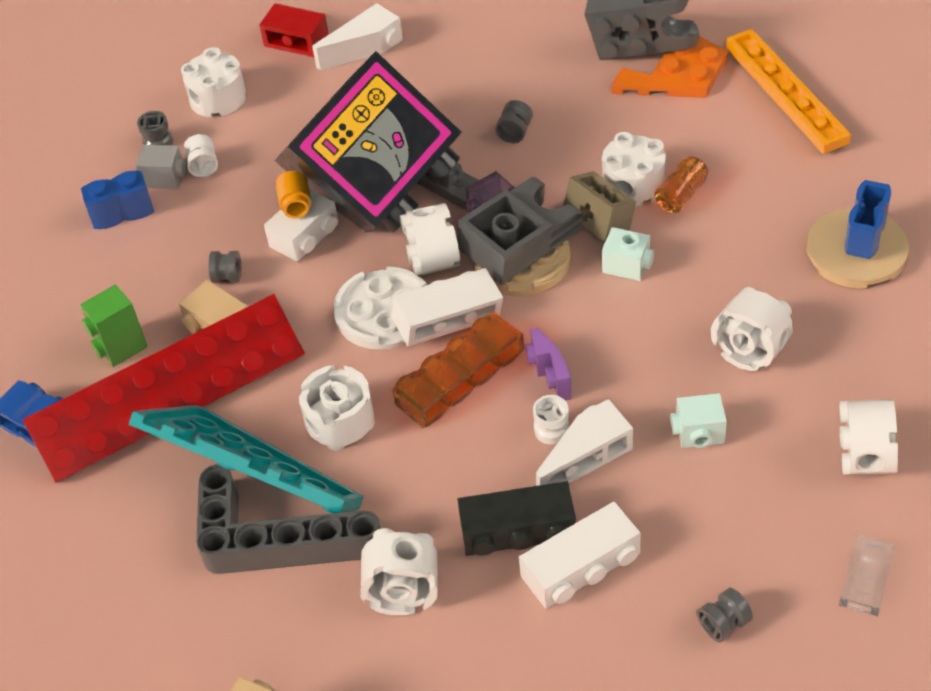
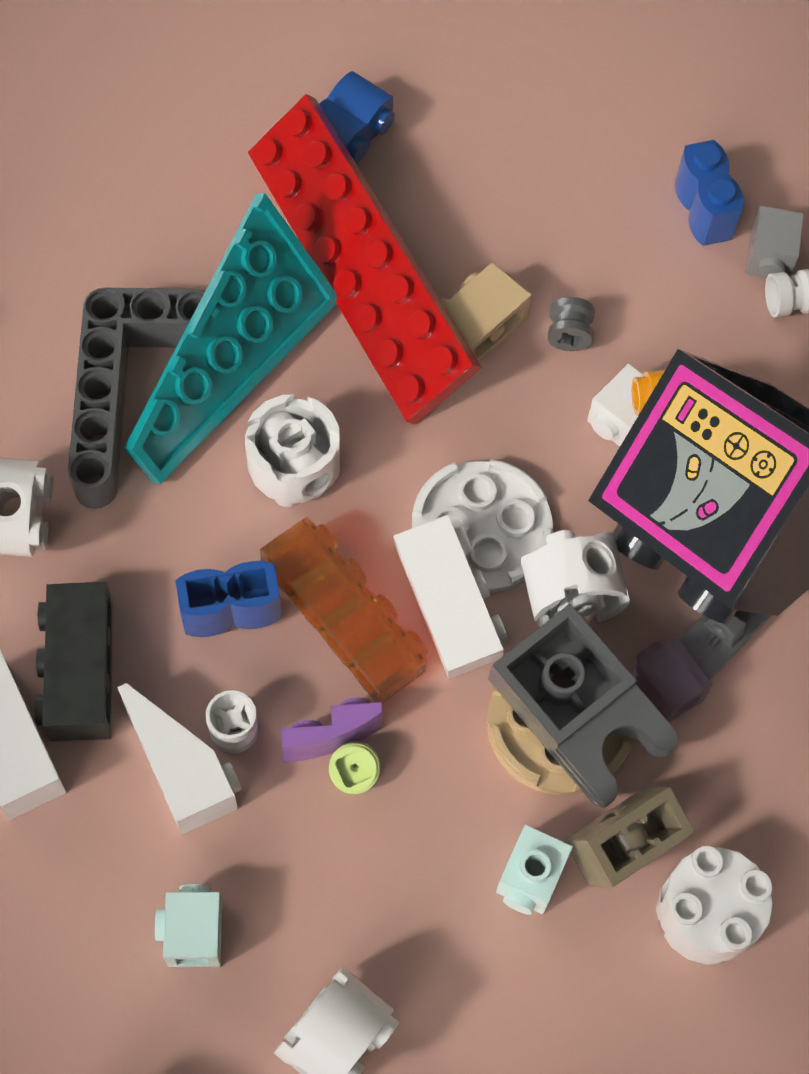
camera: 85 degrees right, 15 degrees up
(113, 326) = (463, 189): bright green brick -> none
(461, 427) = (218, 600): none -> blue brick
(574, 351) = (354, 767): none -> yellowish green tile
(681, 184) = (678, 981): clear orange piece -> none

